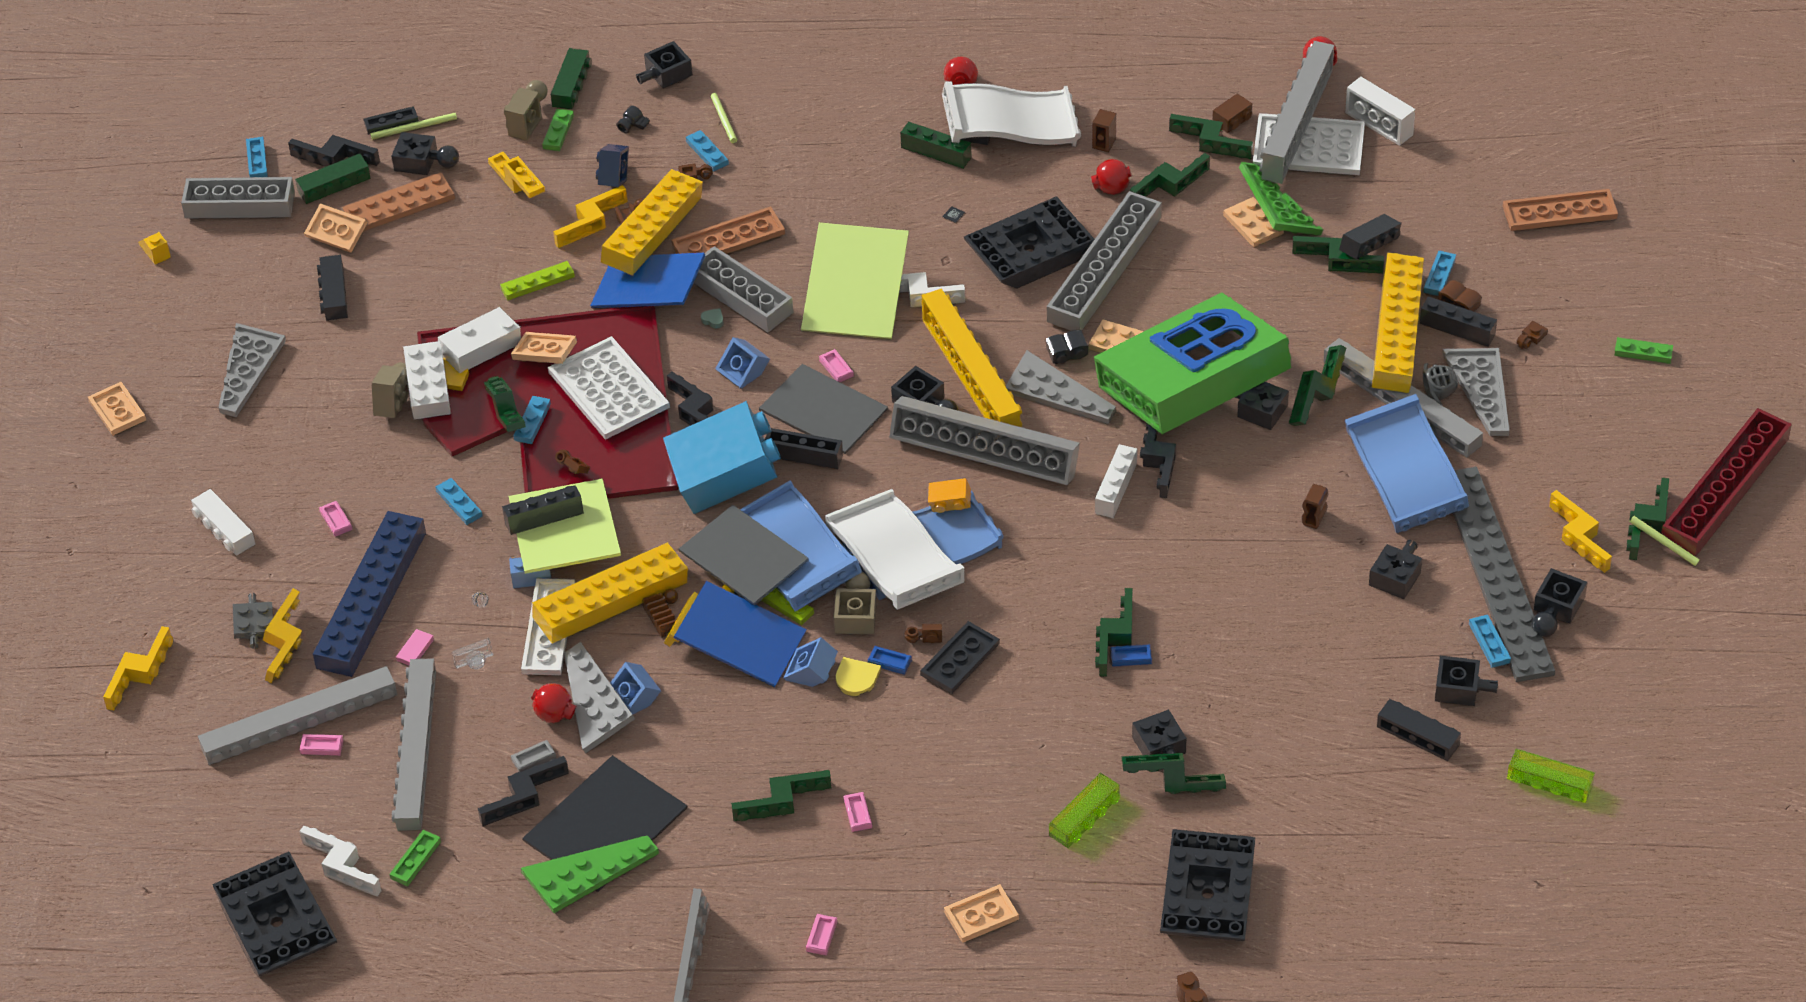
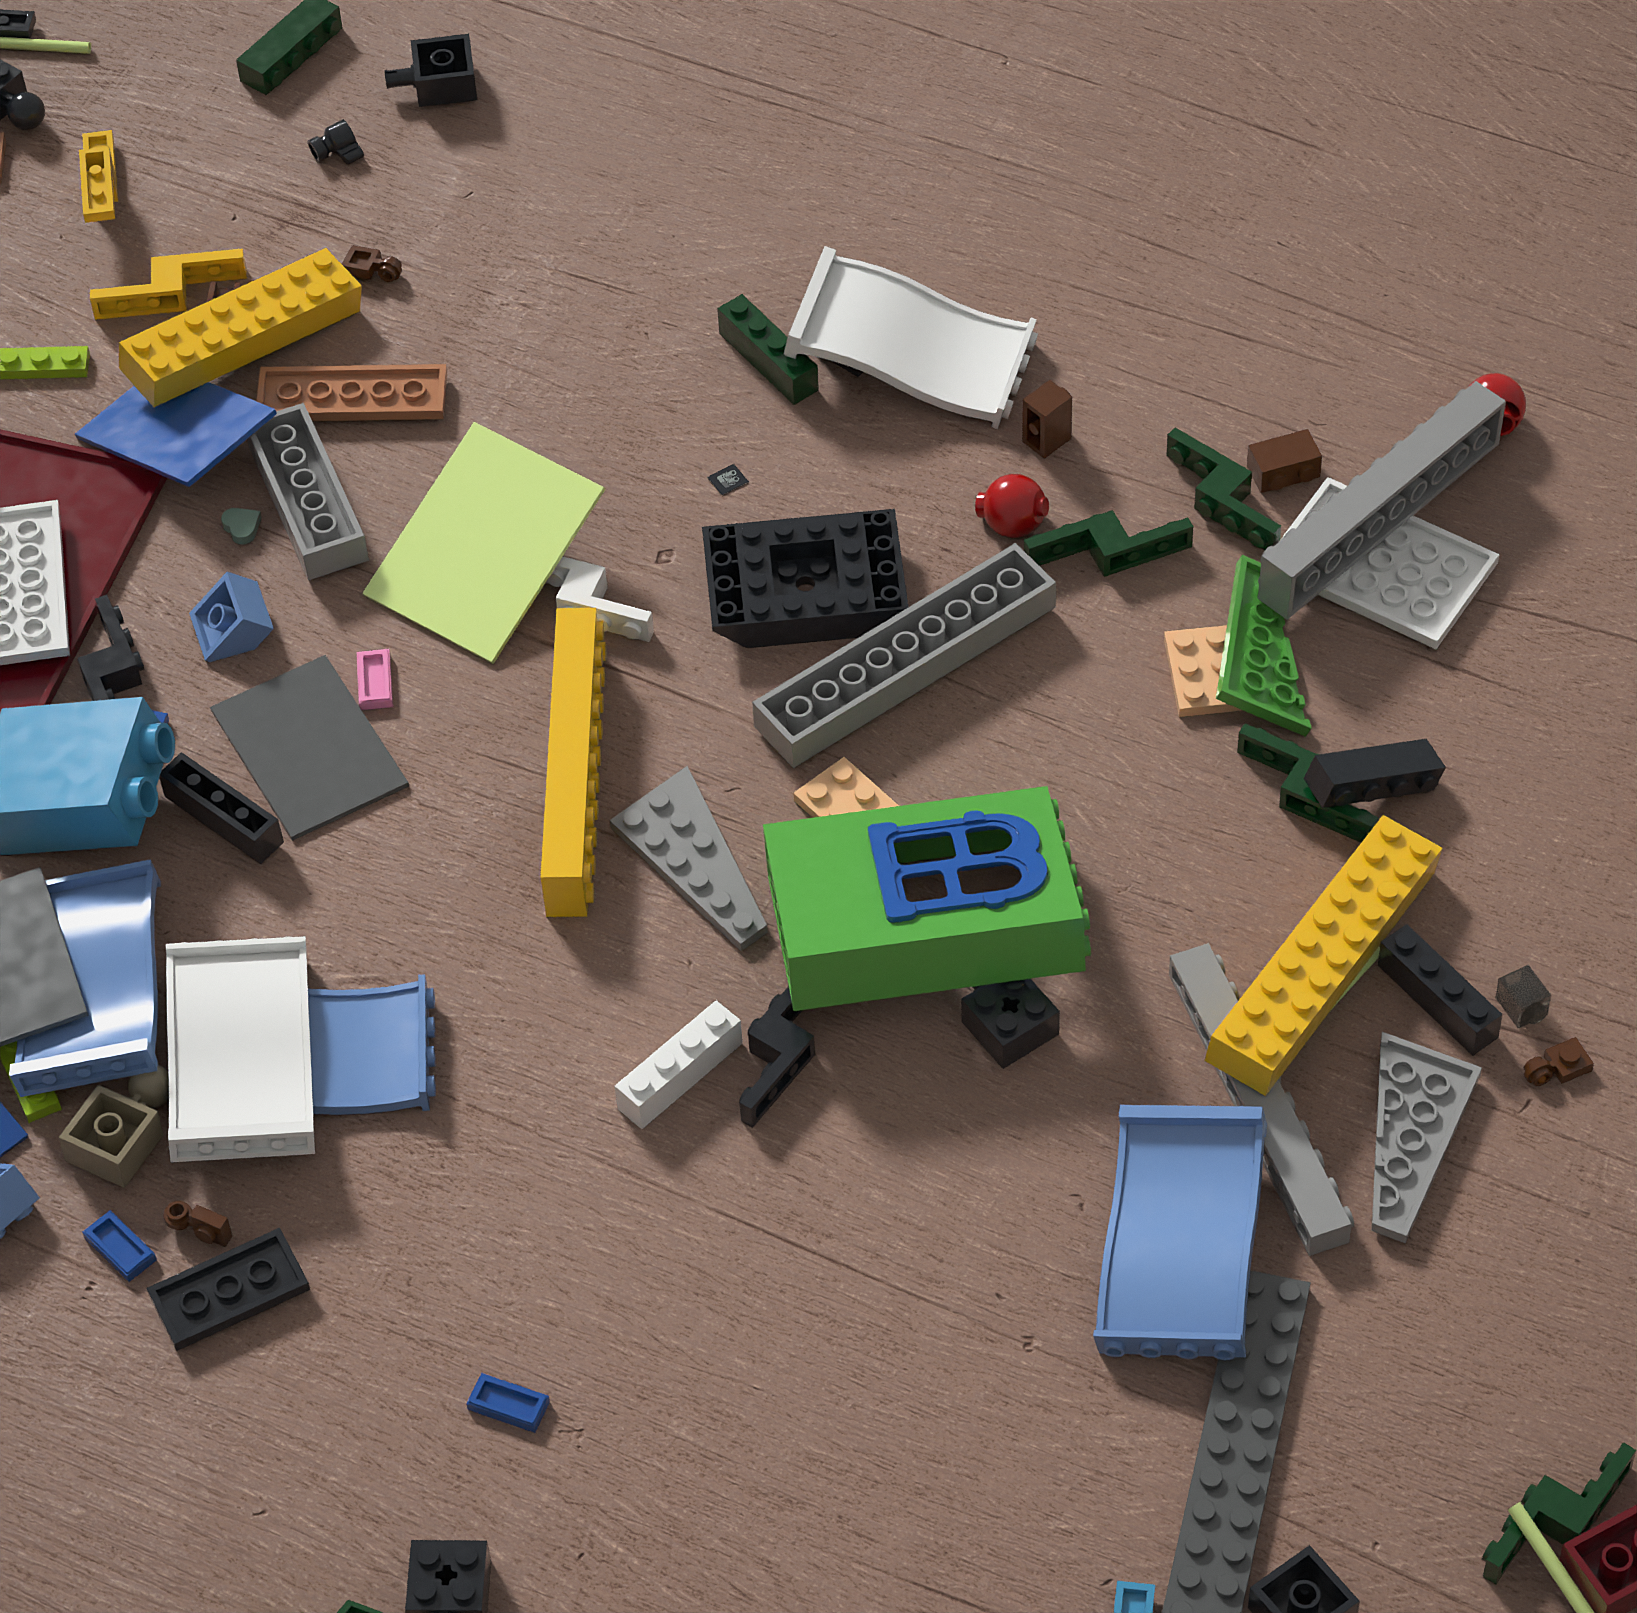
camera: 25 degrees right, 5 degrees up
(524, 110) = (179, 74): dark tan brick -> none
(558, 129) = (220, 122): bright green plate -> none
(612, 165) = (244, 210): dark blue brick -> none
(707, 150) = (417, 234): dark azure plate -> none
(723, 117) = (477, 188): yellowish green bar -> none
(856, 676) = (48, 1254): light yellow tile -> none
(922, 387) = (466, 783): black brick -> none
(949, 495) = (384, 986): light orange brick -> none
(960, 71) = (883, 238): red brick -> none
(984, 440) = (506, 908): light grey brick -> none
(1067, 346) = (753, 785): black brick -> none
(1114, 632) = (503, 1349): dark green bracket -> none
(1315, 506) = (975, 1248): reddish brown brick -> none
(1317, 385) = (1118, 1020): dark green bracket -> none
(1380, 111) = (1532, 546): white brick -> none
(1396, 570) = (1047, 1428): black brick -> none
(1439, 272) = (1464, 885): dark azure plate -> none
(1439, 381) = (1332, 1094): dark grey piece -> none
(1458, 295) = (1469, 945): reddish brown brick -> none
(1500, 310) = (1523, 997): none -> clear smoke brick
(1580, 531) = (1418, 1487): yellow bracket -> none

